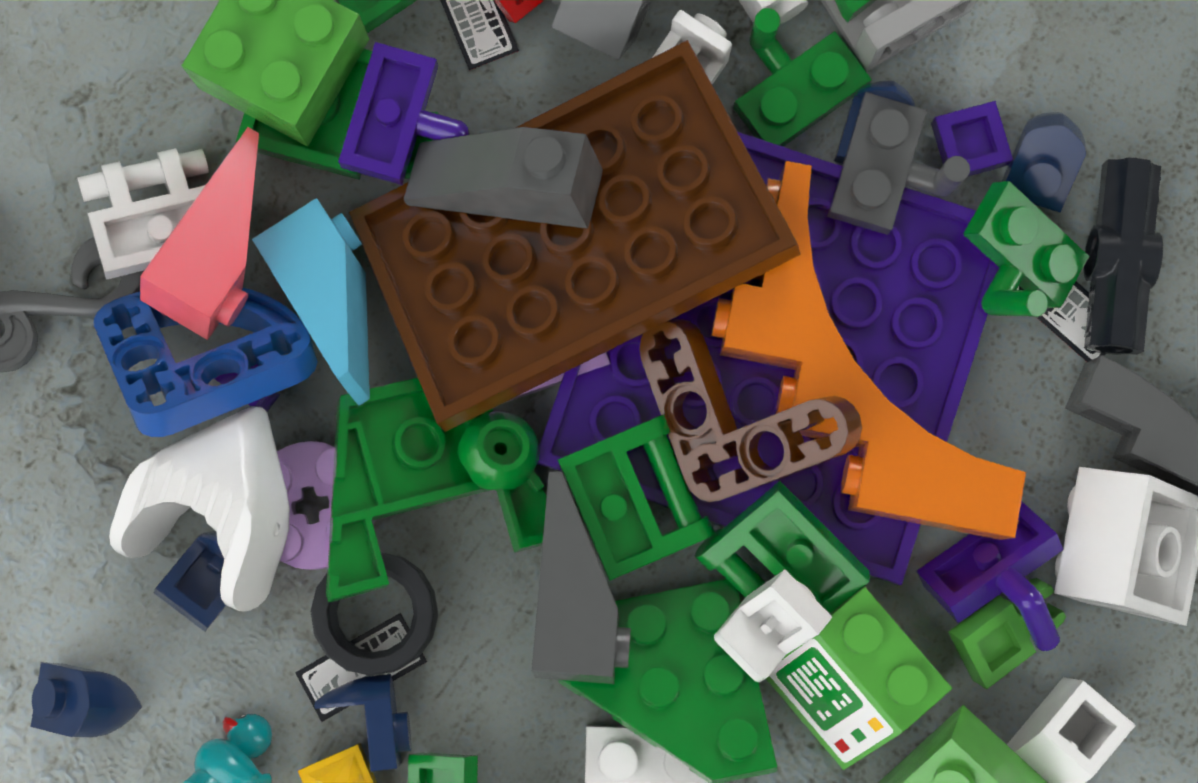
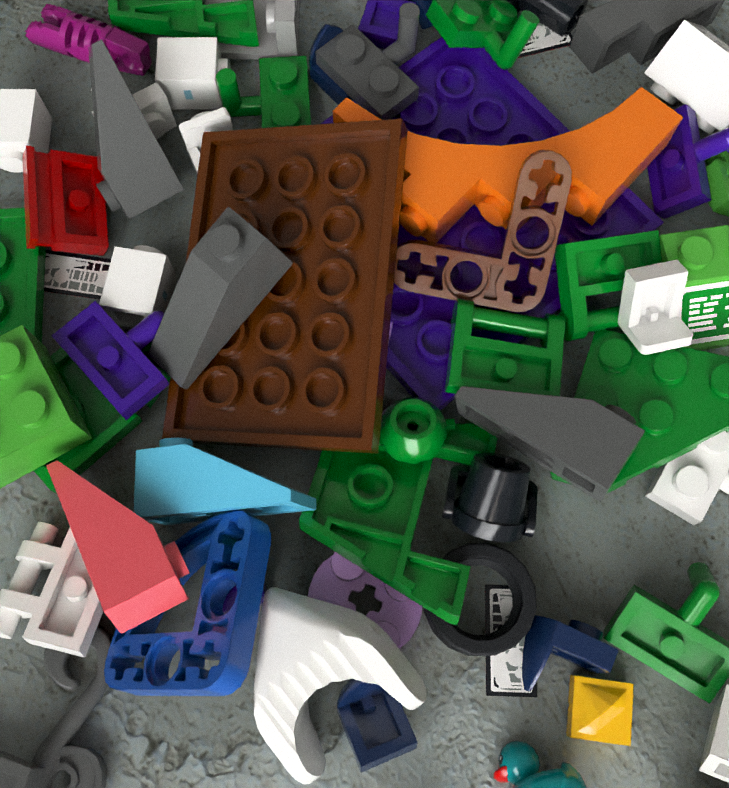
camera: 60 degrees left, 10 degrees down
(477, 570) = (494, 500): none -> black piece
(489, 84) = (137, 284): none -> white brick

